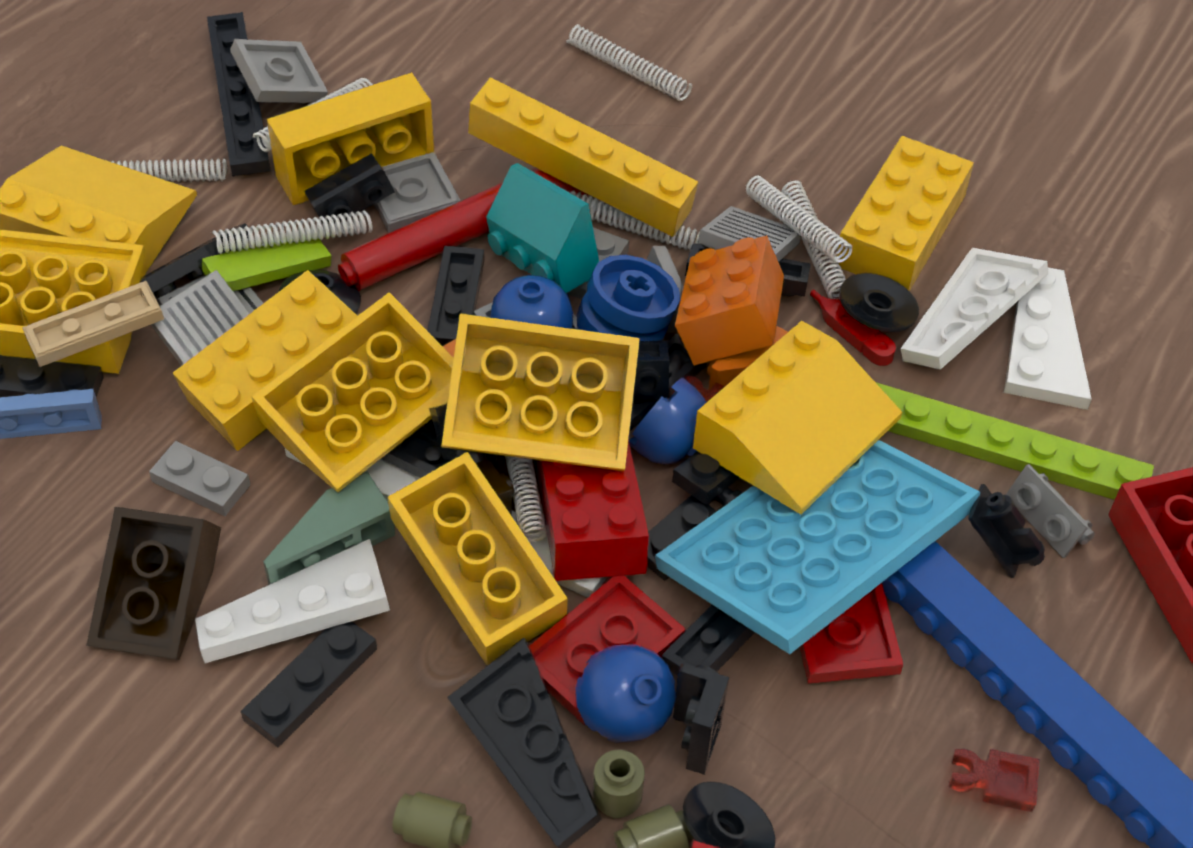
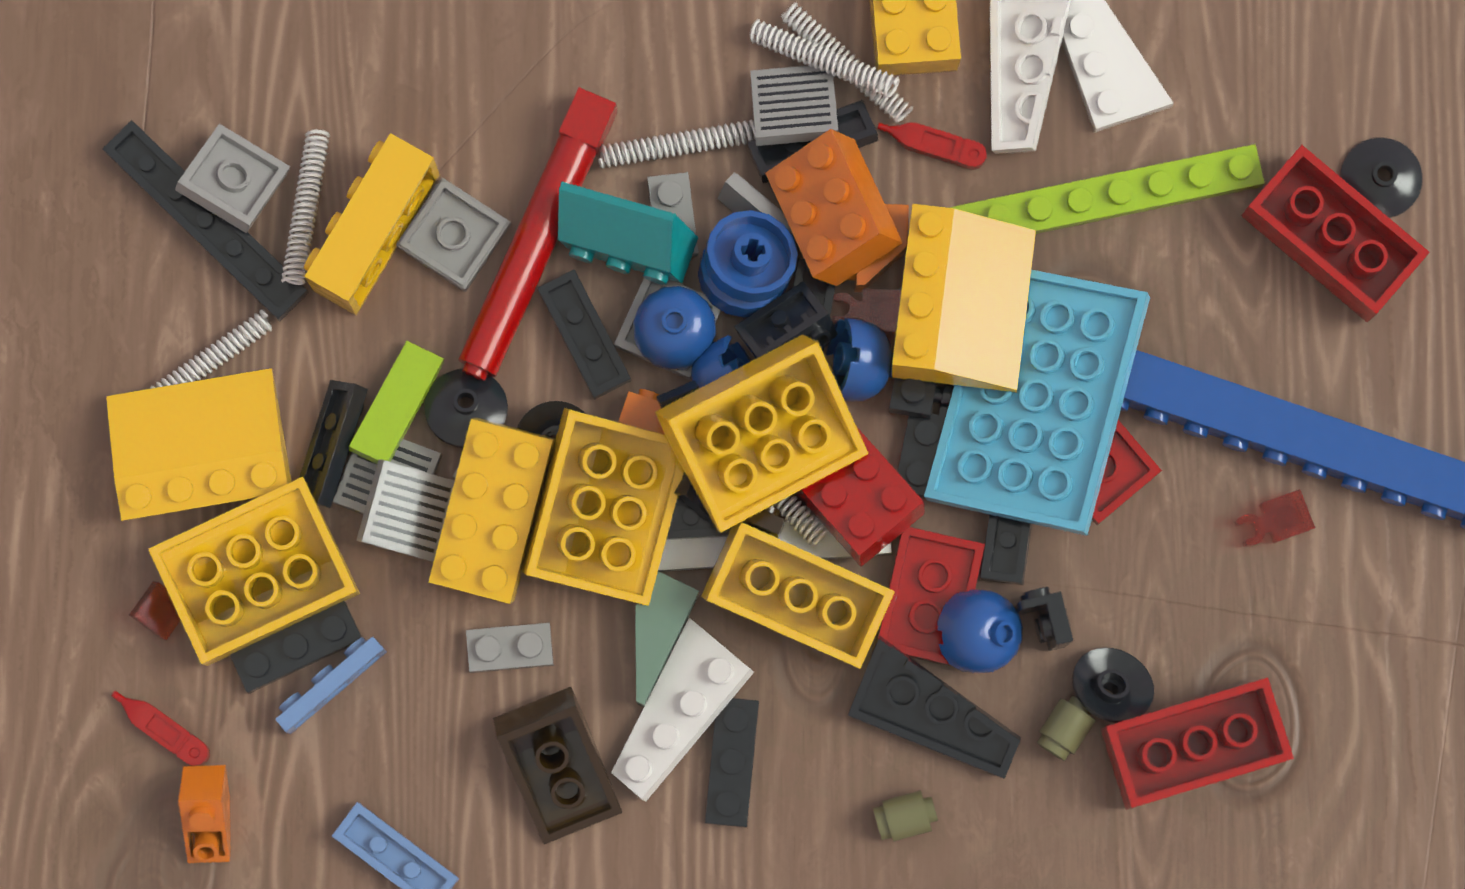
camera: 35 degrees left, 30 degrees up
(93, 323) = (332, 584): tan tile -> none
(321, 232) = (423, 338): white piece -> none
(350, 189) = (406, 277): black bracket -> none
(582, 157) = (605, 129): yellow brick -> none
(618, 783) = (1009, 715): olive brick -> none
(879, 302) = (949, 95): black dish -> none
(1004, 531) = (1176, 301): black hinge -> none
(1049, 512) = (1212, 253): light grey hinge -> none

